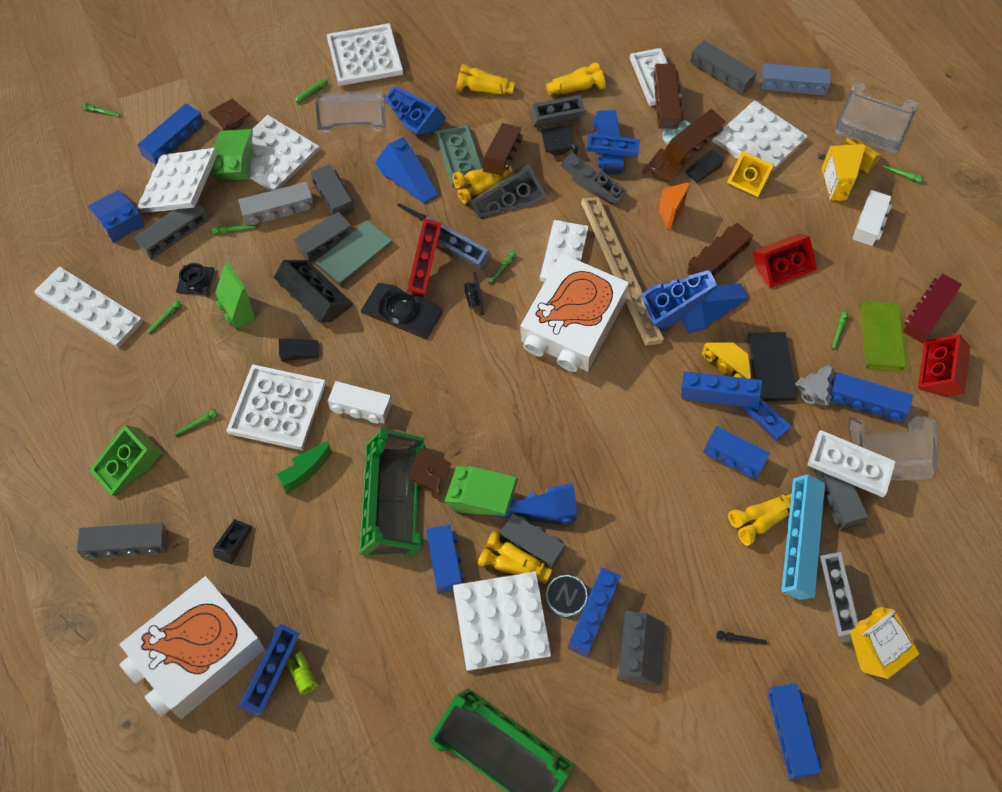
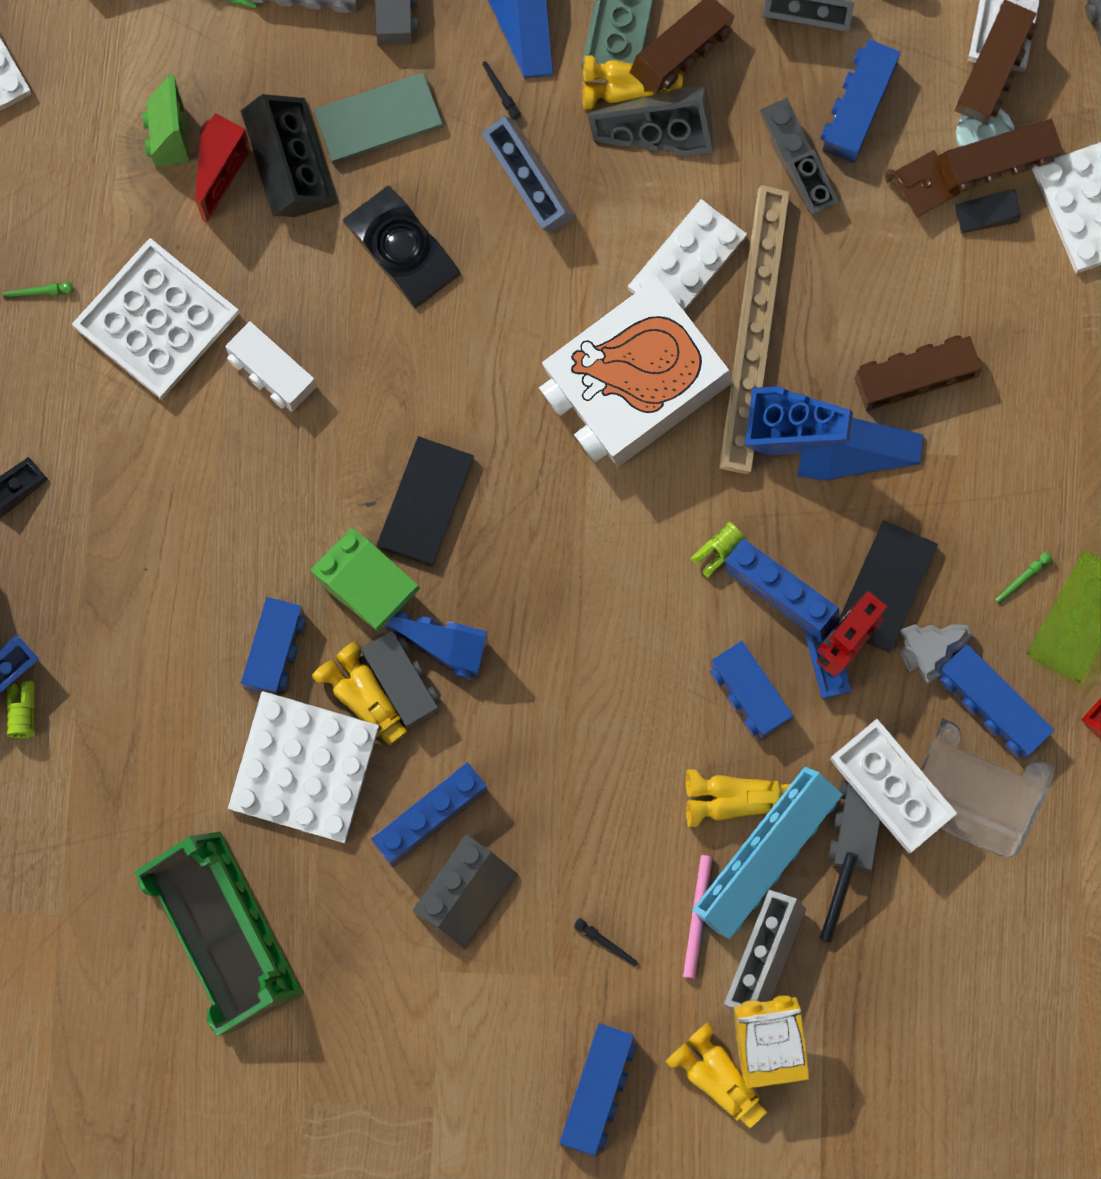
camera: 30 degrees right, 15 degrees up
(170, 311) = (76, 94): bright green piece -> none
(195, 279) = (131, 58): black hat -> none
(274, 302) = (221, 155): none -> red slope
(298, 349) = (225, 241): black slope -> none
(304, 467) = (152, 428): green slope -> none
(323, 237) = (344, 72): dark grey brick -> none
(389, 496) = (248, 523): windscreen -> none
(424, 257) = (465, 182): red brick -> none
(429, 471) = (313, 515): reddish brown hat -> none
(474, 294) = (512, 273): black hat -> none
(490, 435) = (425, 501): none -> black tile
(507, 261) = (596, 236): bright green piece -> none
(558, 140) = (784, 61): black hat -> none
(566, 596) = (407, 774): black tile -> none
(613, 145) = (854, 117): blue plate -> none
(671, 384) = (722, 545): none -> lime hinge
(672, 203) = (893, 259): orange slope -> none
(728, 358) = (826, 550): yellow slope -> none
(750, 174) = (1047, 261): yellow slope -> none
(776, 391) = (851, 634): none -> red piece
(785, 260) = (1011, 429): red slope -> none
(786, 598) = (696, 922): none -> bright pink piece
(857, 684) = (717, 1076): none -> yellow piece
(859, 541) = (839, 896): none -> black bar

